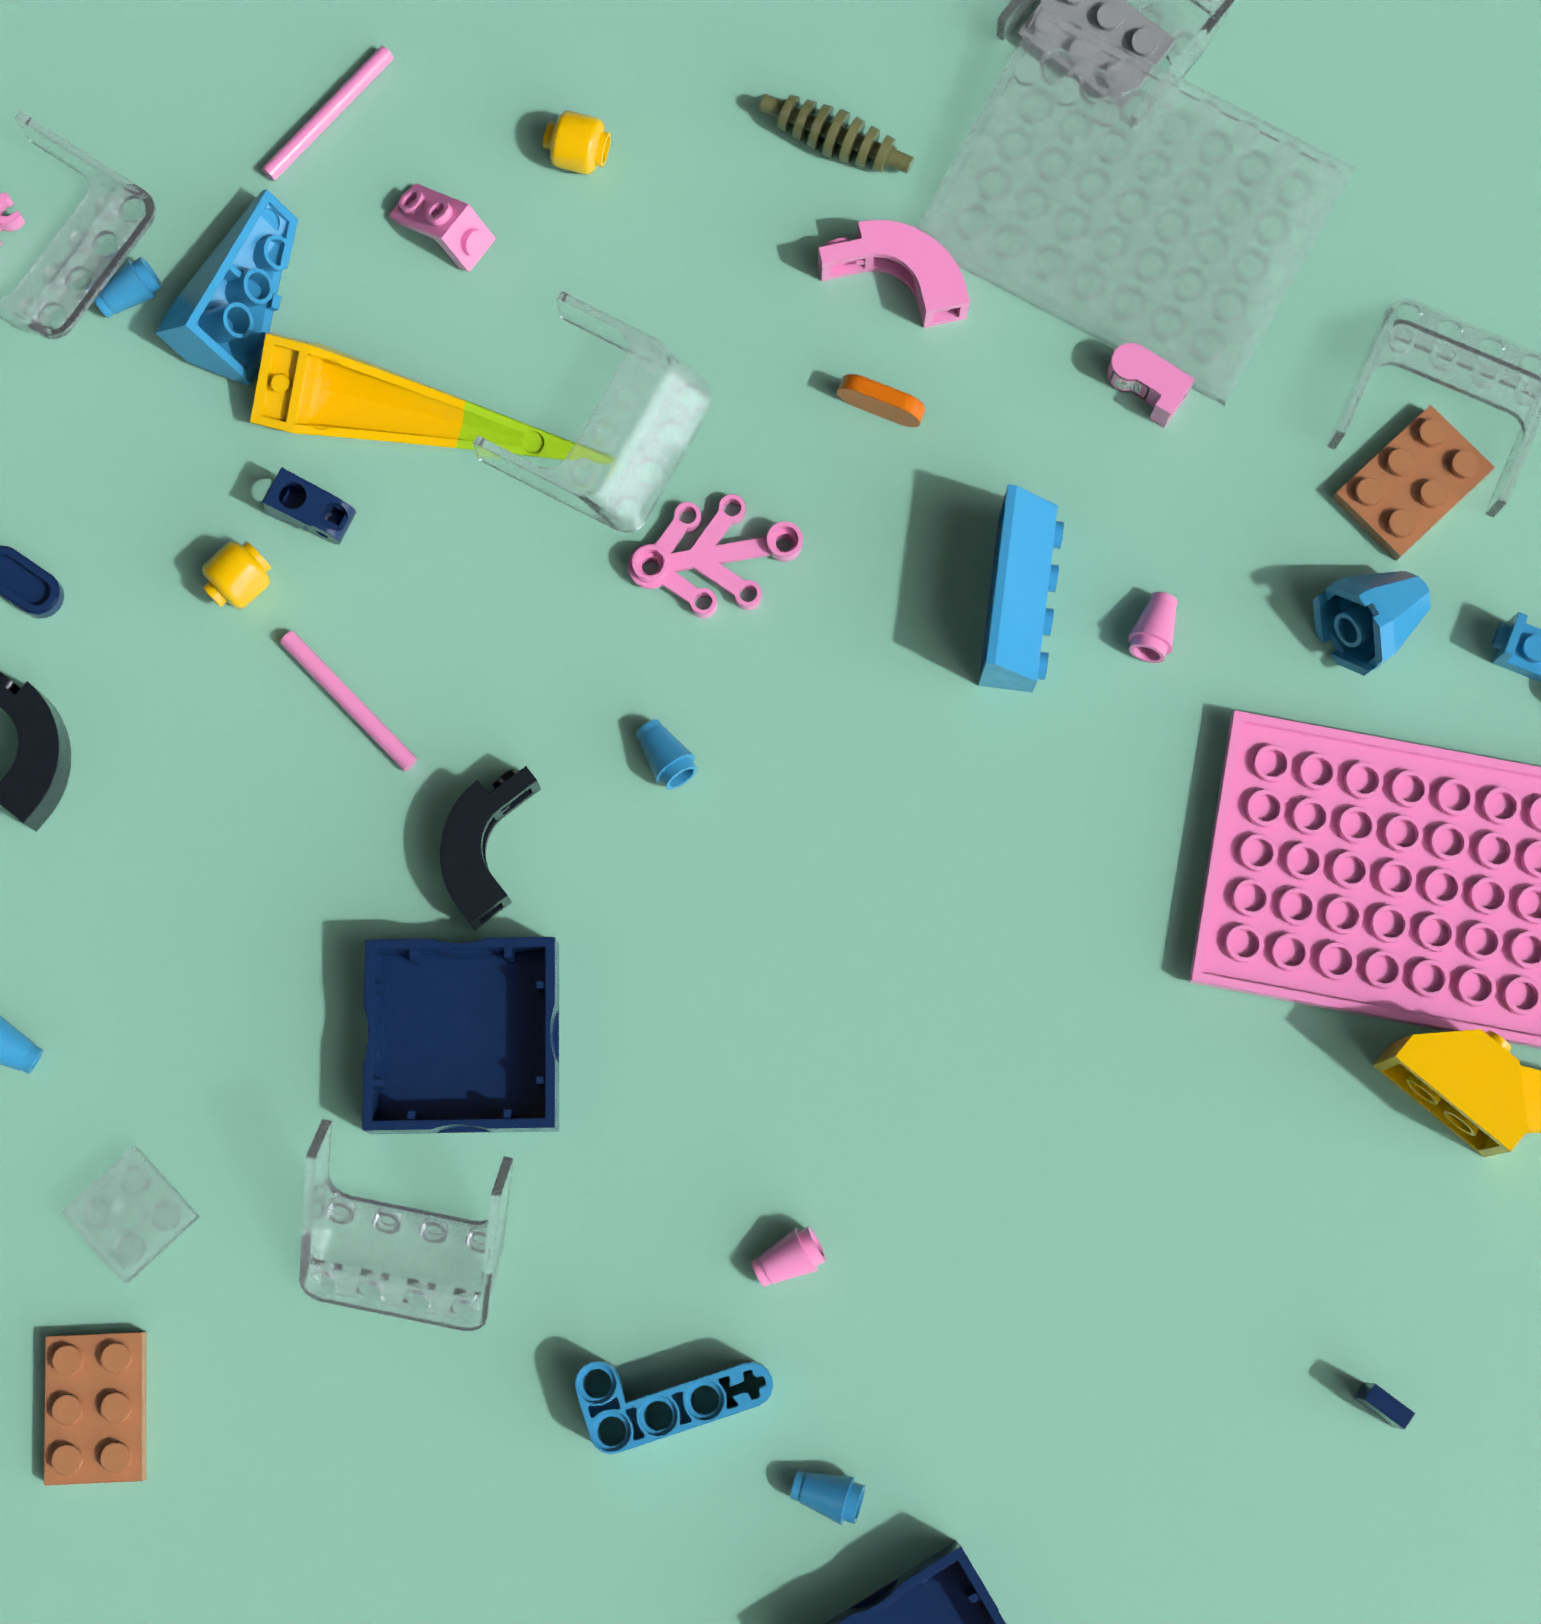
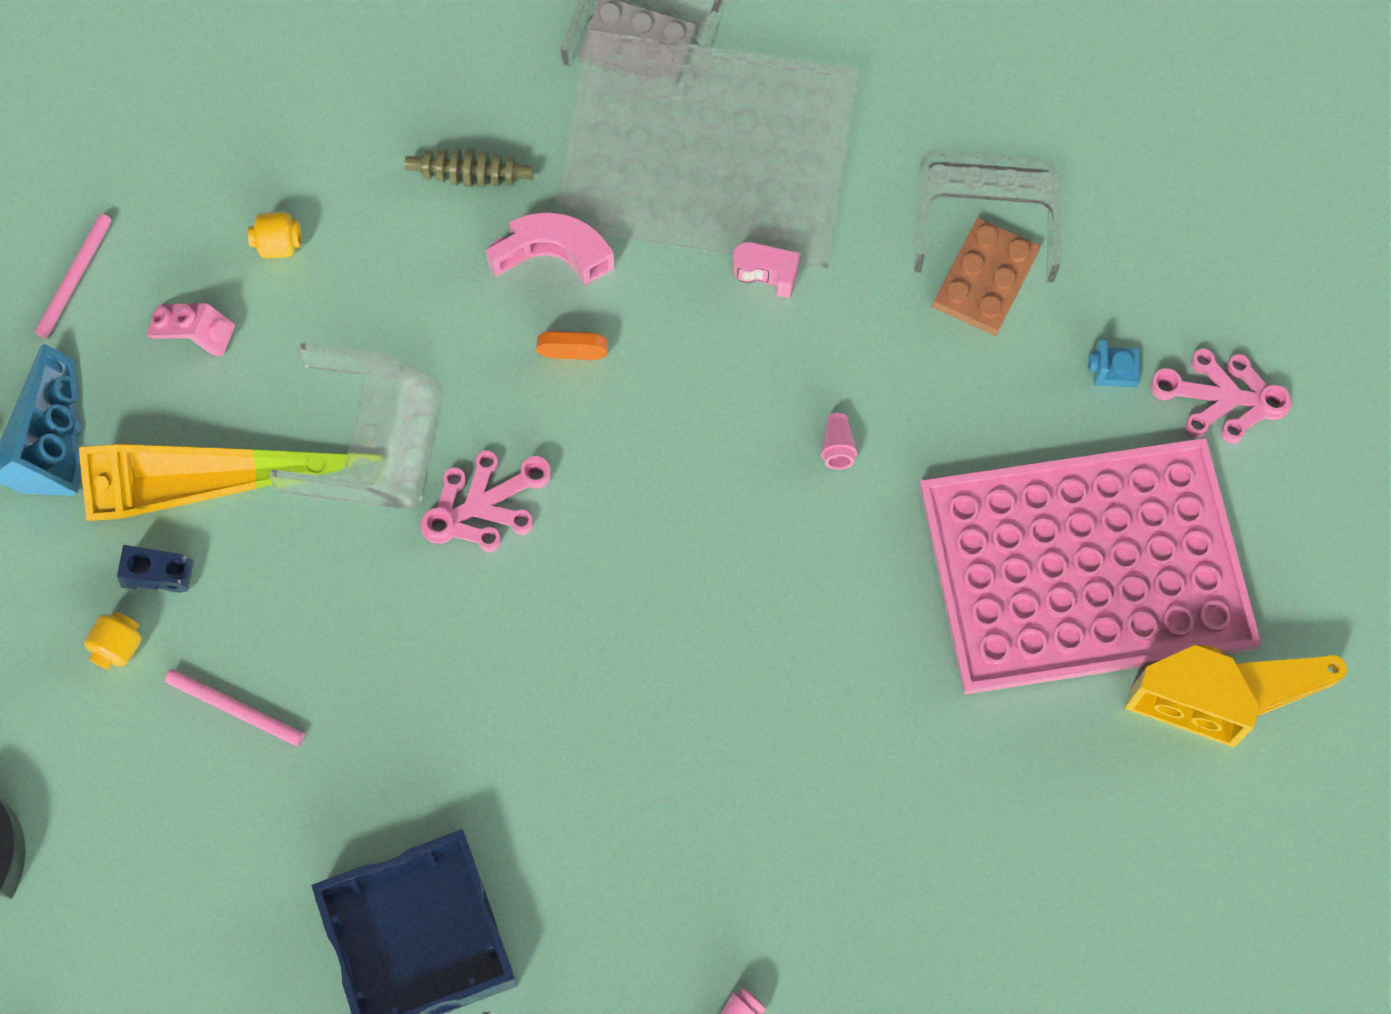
camera: 20 degrees left, 10 degrees down
(466, 840) = (366, 758): black arch -> none
(667, 756) = (501, 662): dark azure cone -> none
(1019, 592) = (727, 449): slope -> none
(1370, 617) = (992, 380): dark azure cone -> none
(1384, 1405) = (1237, 962): dark blue tile -> none

